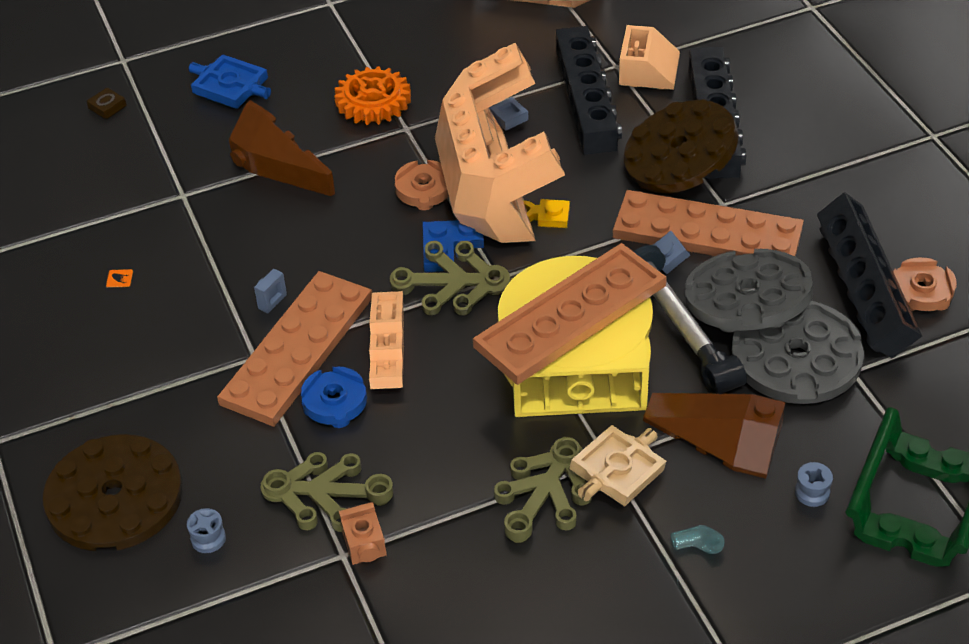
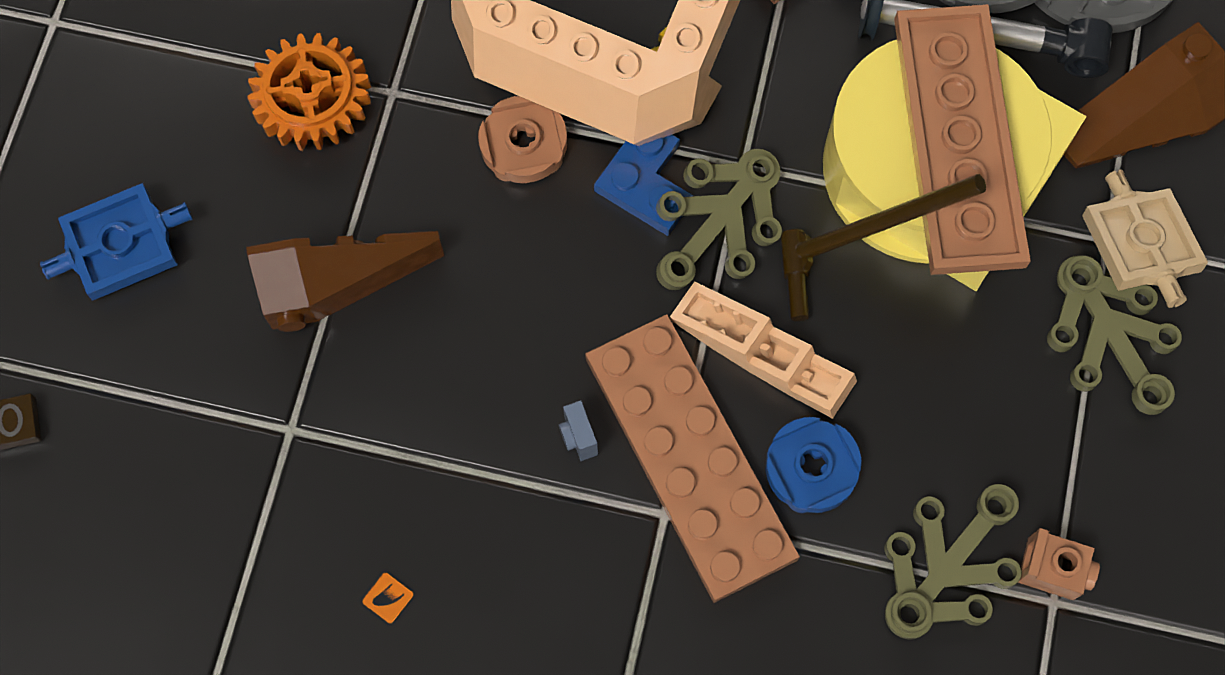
camera: 55 degrees left, 25 degrees up
(469, 318) = (800, 248): none -> dark brown bar

